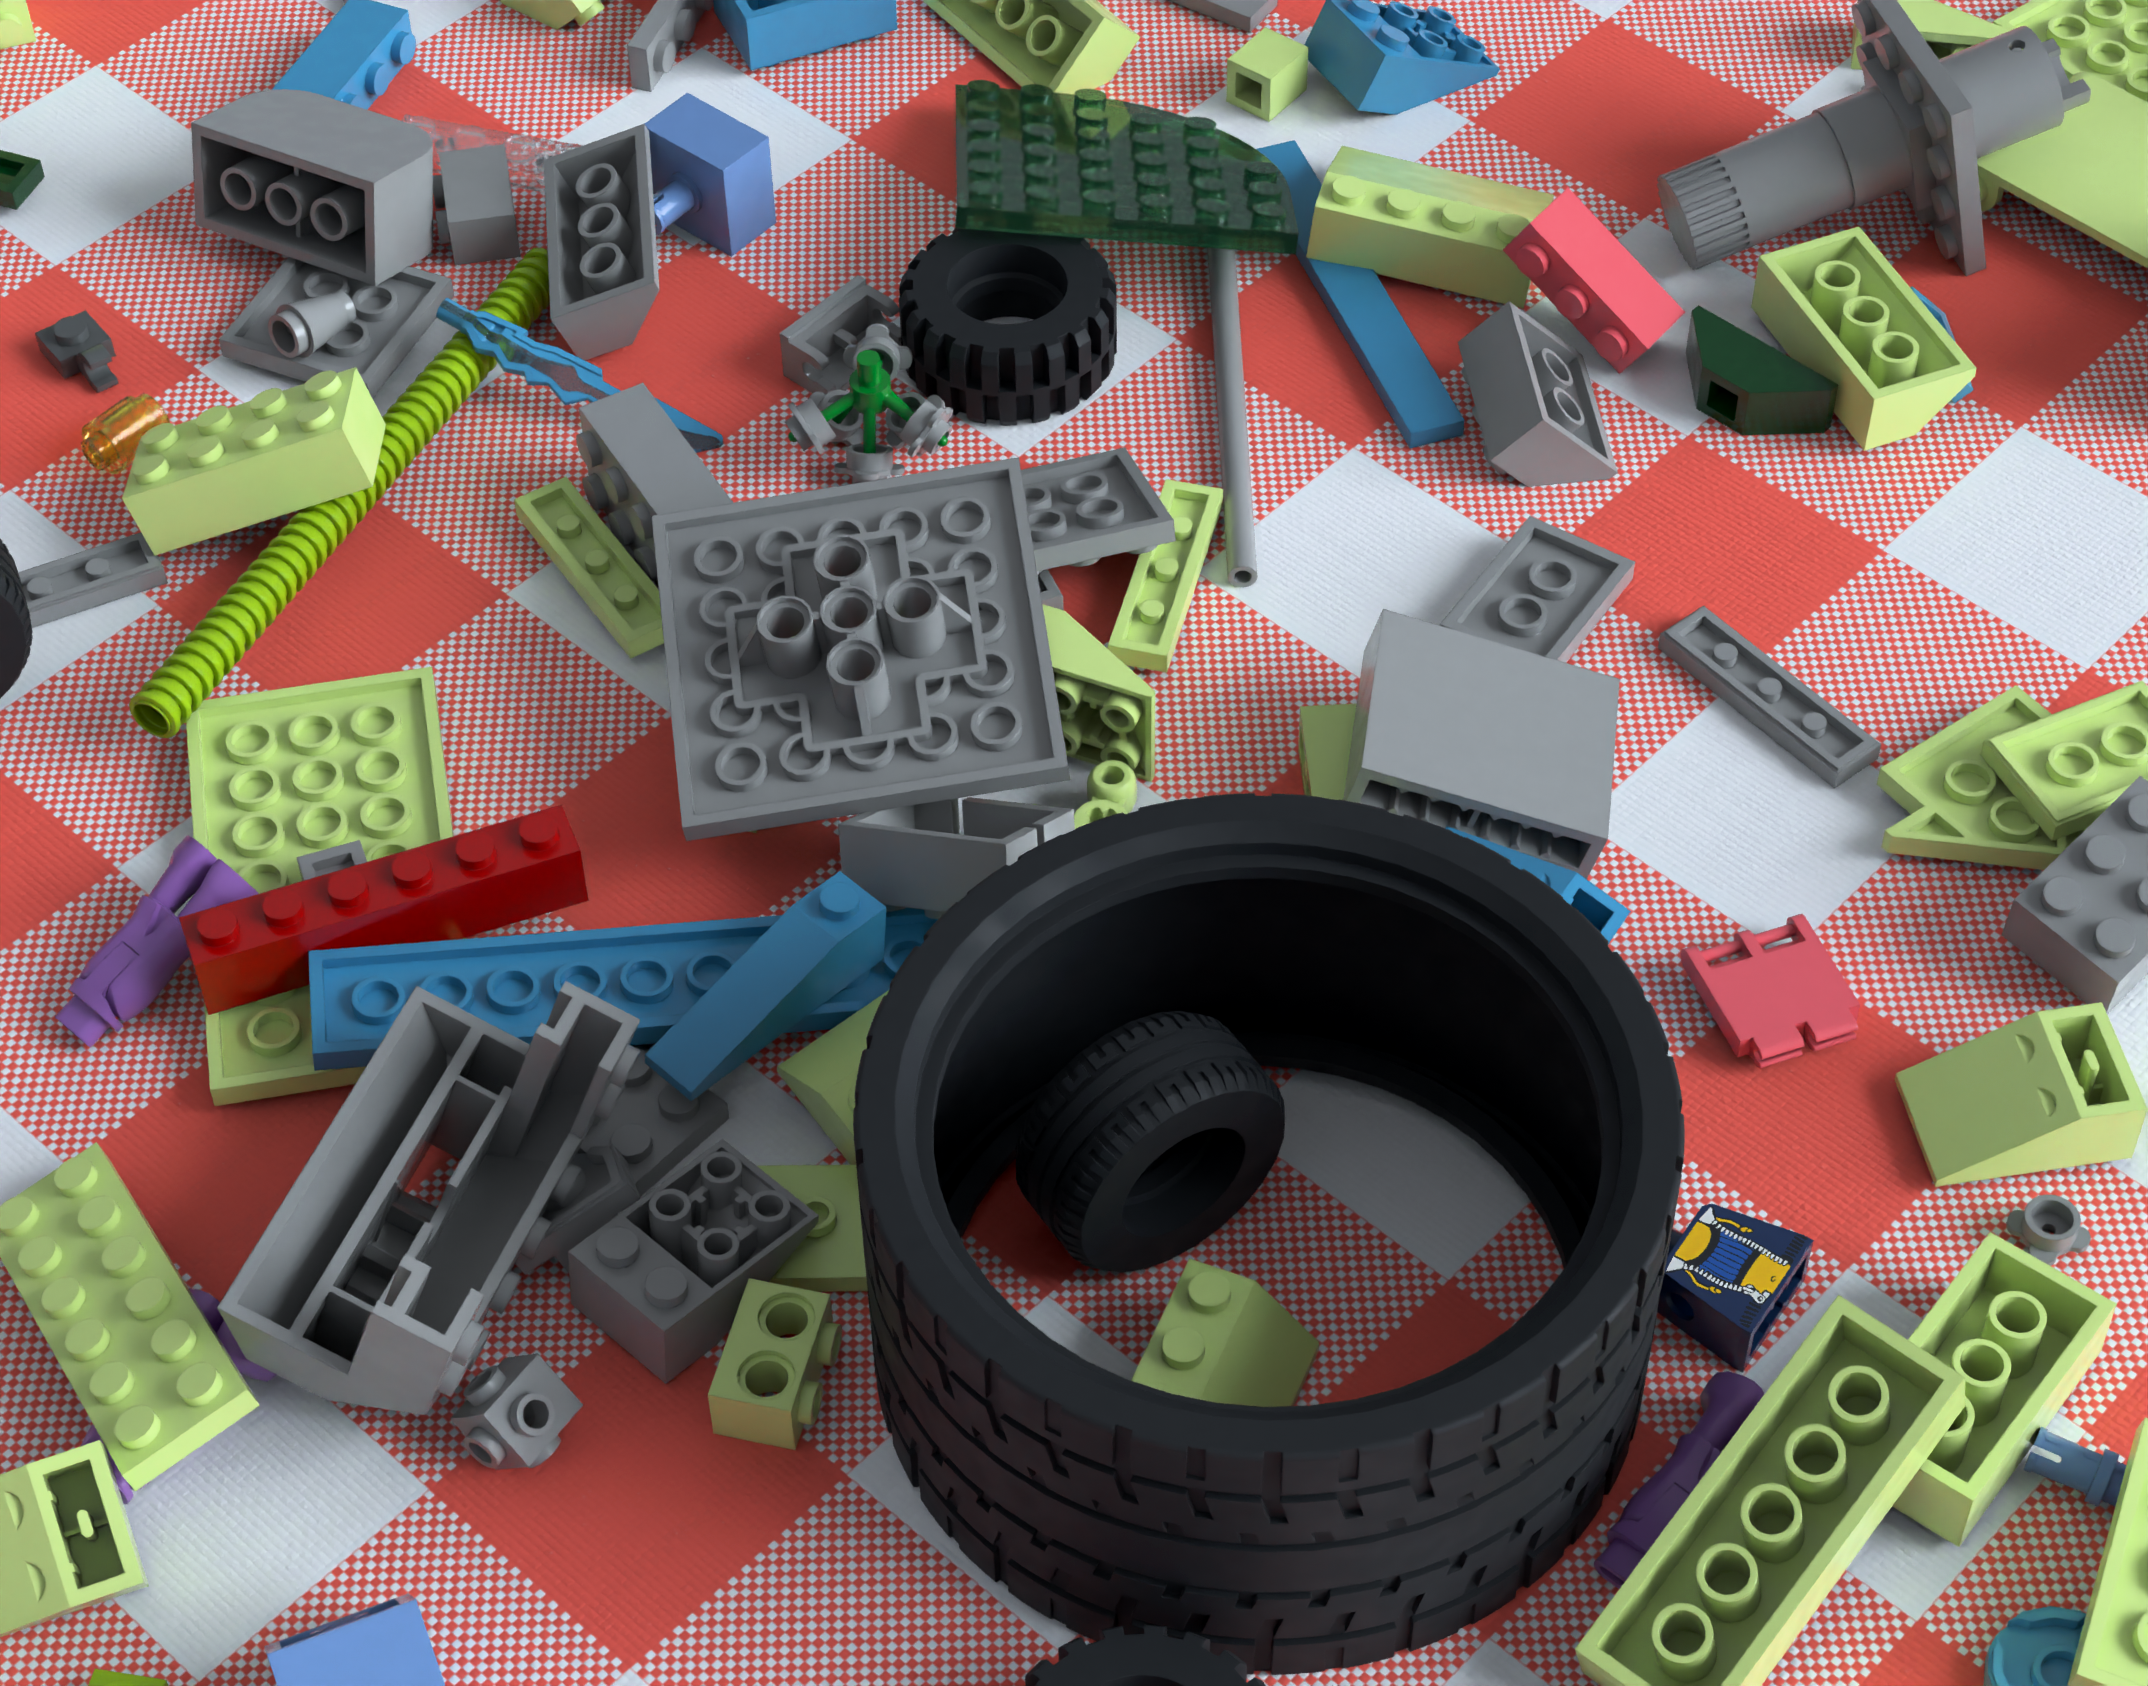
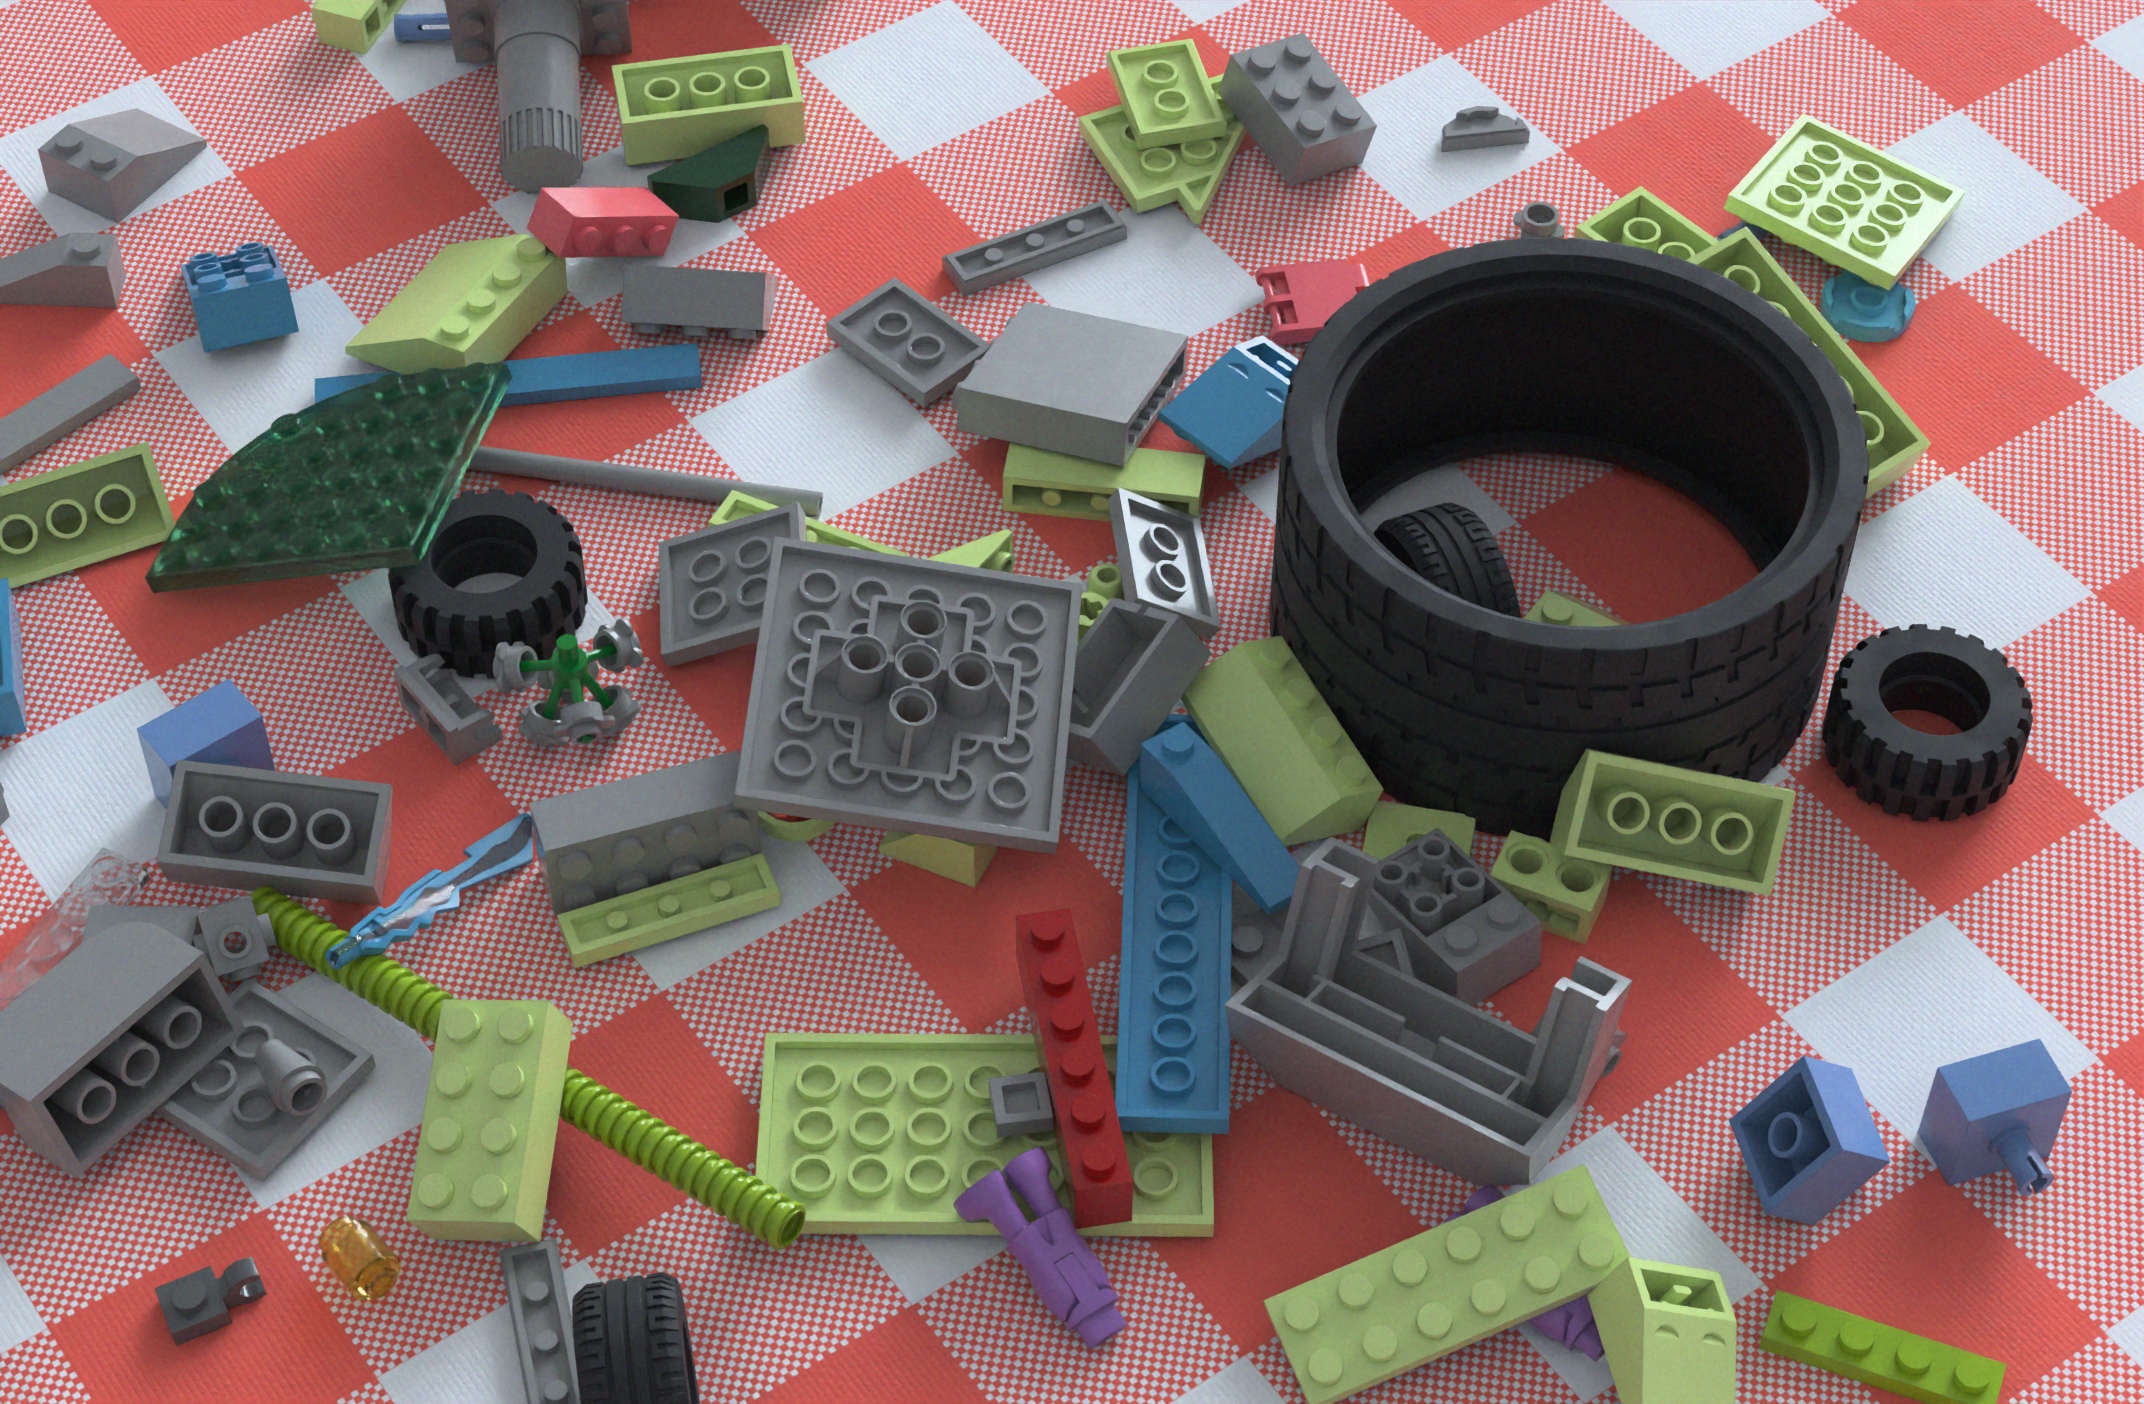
camera: 80 degrees left, 0 degrees up
(479, 244) = (229, 917): none -> light grey brick
(829, 1456) = (1673, 821): none -> yellowish green slope
(1267, 74) = (225, 377): yellowish green brick -> none
(2026, 1099) = (1443, 193): yellowish green slope -> none

